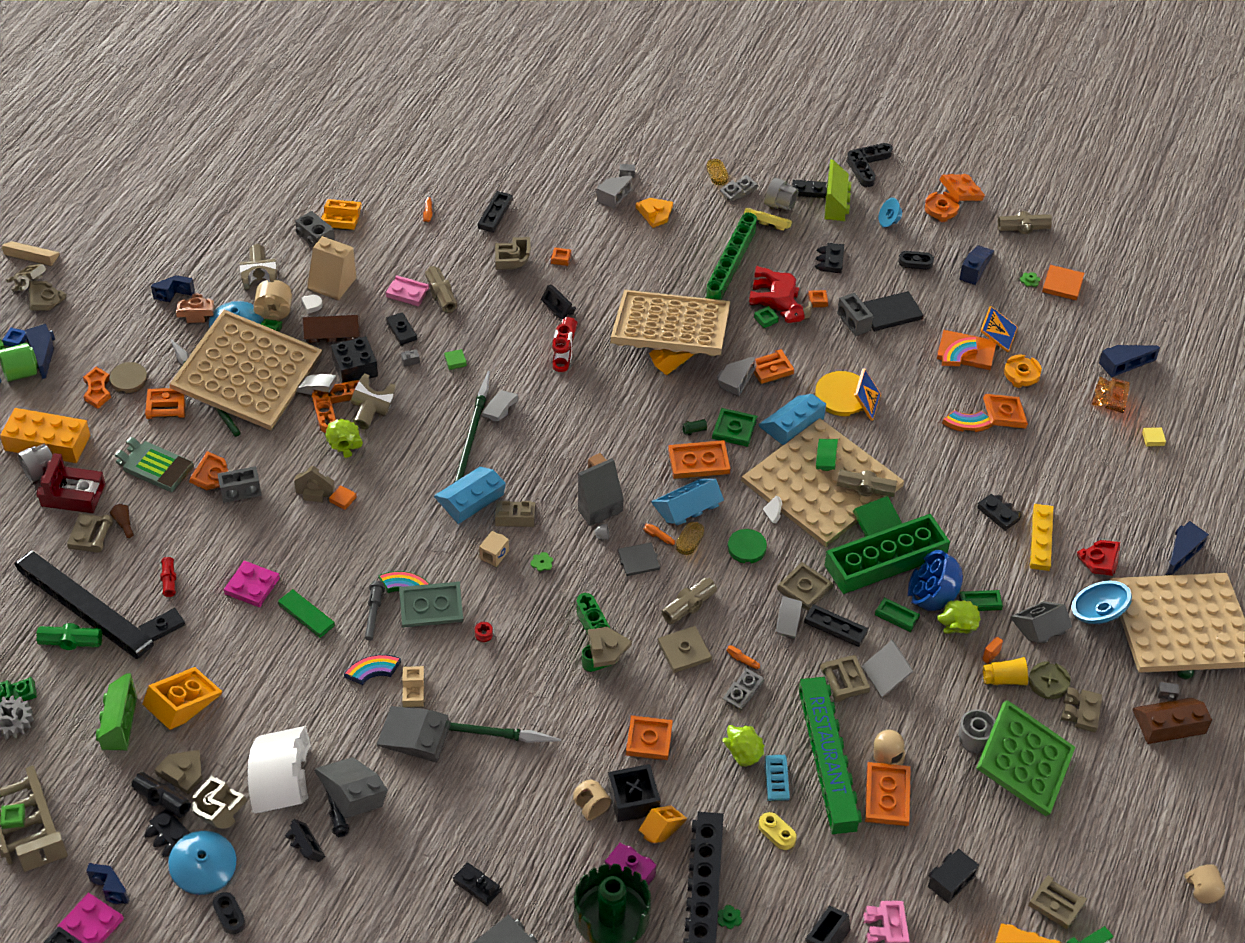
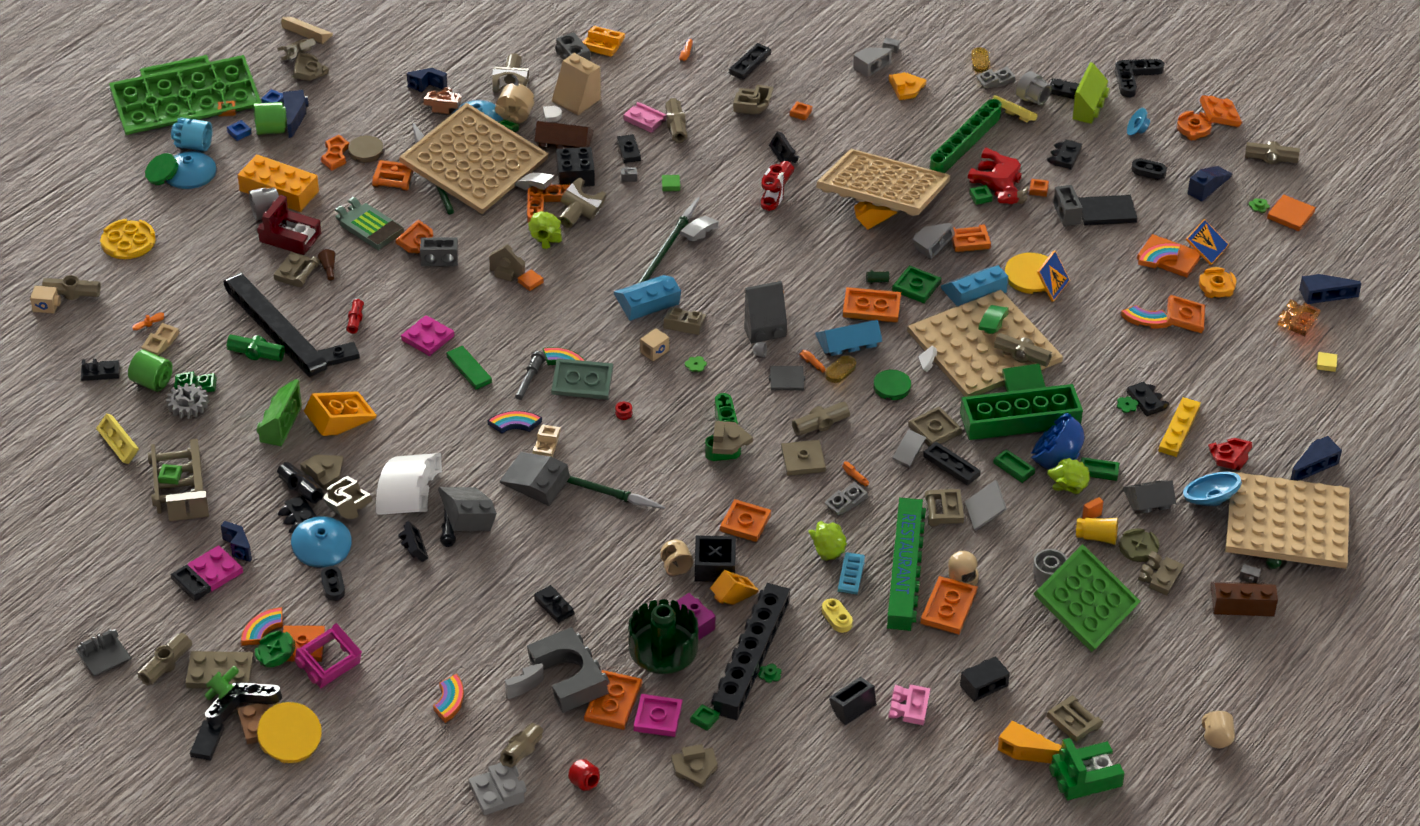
camera: 15 degrees right, 5 degrees down
(983, 522) = (1127, 404): none -> green plant

